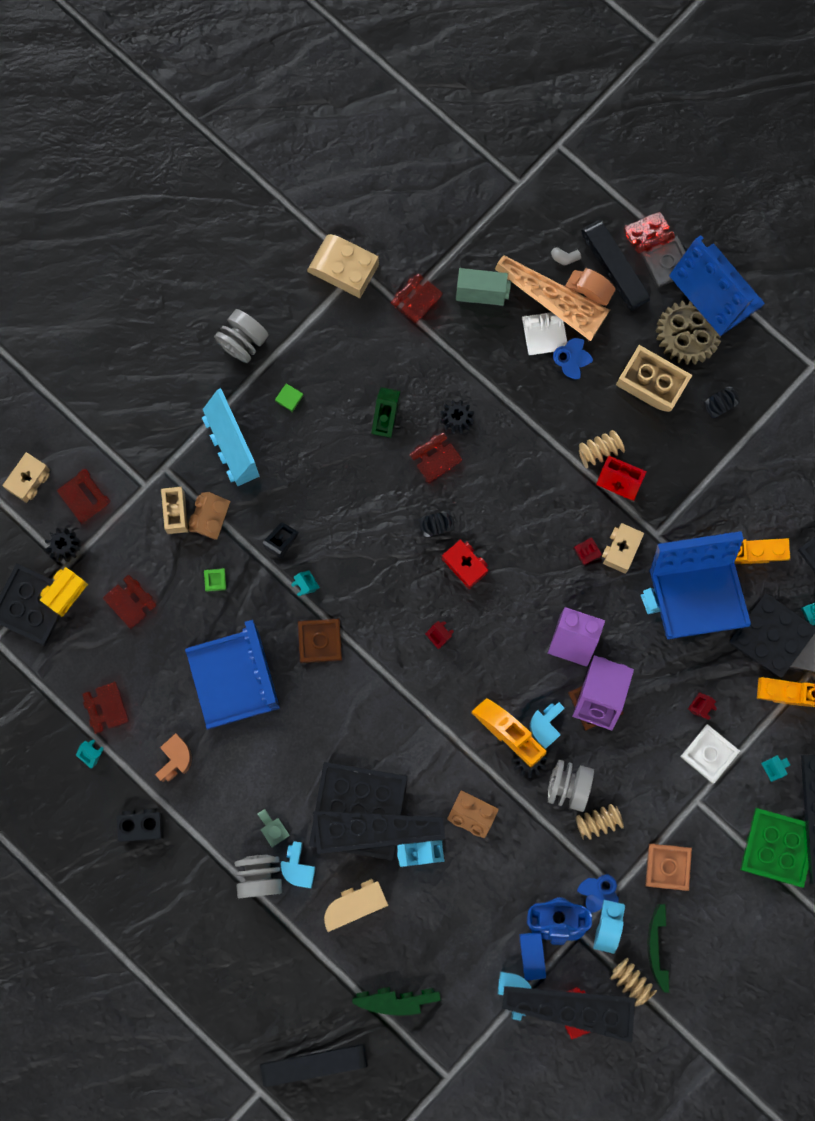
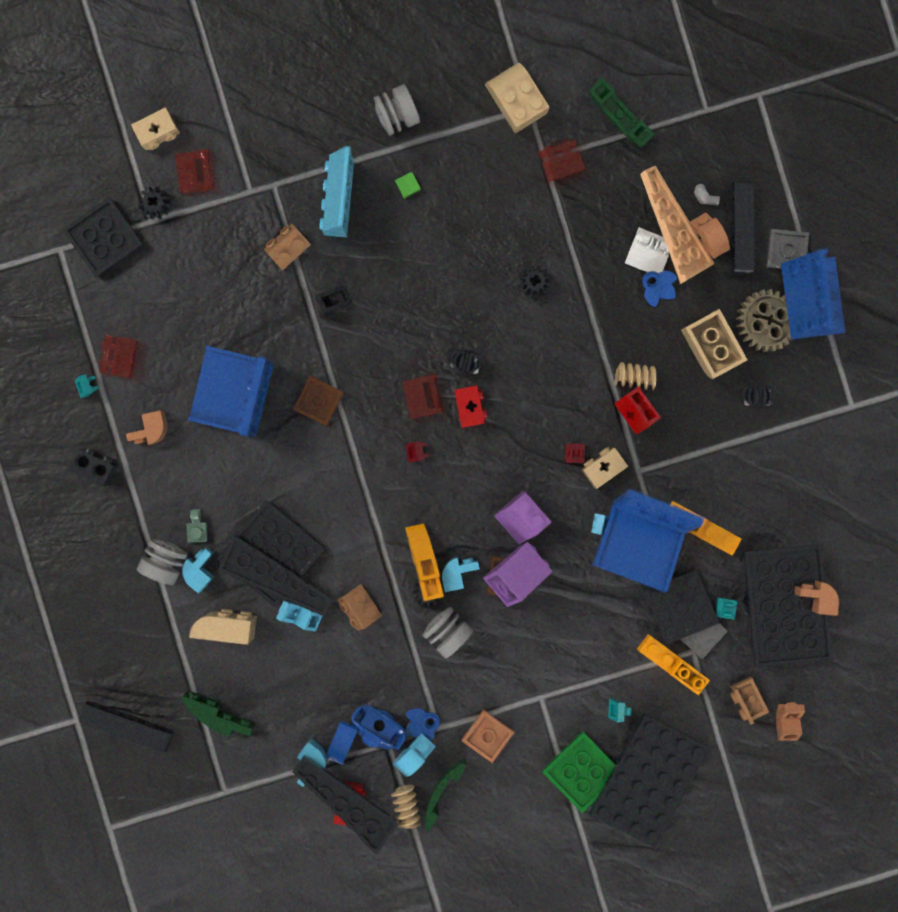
camera: 25 degrees right, 10 degrees up
(63, 591) = (132, 242): yellow brick -> none
(124, 606) = (178, 281): clear red plate -> none
(174, 510) = (260, 226): tan brick -> none
(215, 580) = (262, 302): bright green tile -> none
(306, 583) = (333, 348): teal tile -> none
(385, 412) = (479, 243): dark green slope -> none
(410, 585) = (416, 397): none -> clear red plate
(440, 461) = (500, 310): clear red plate -> none
(444, 229) = (619, 114): none -> dark green slope
(482, 287) = (620, 183): sand green brick -> none
(599, 821) = (454, 672): tan piece -> none
(648, 228) = (787, 211): clear red plate -> none
(702, 705) = (590, 629): dark red tile -> none
(710, 753) = (573, 668): white tile -> none

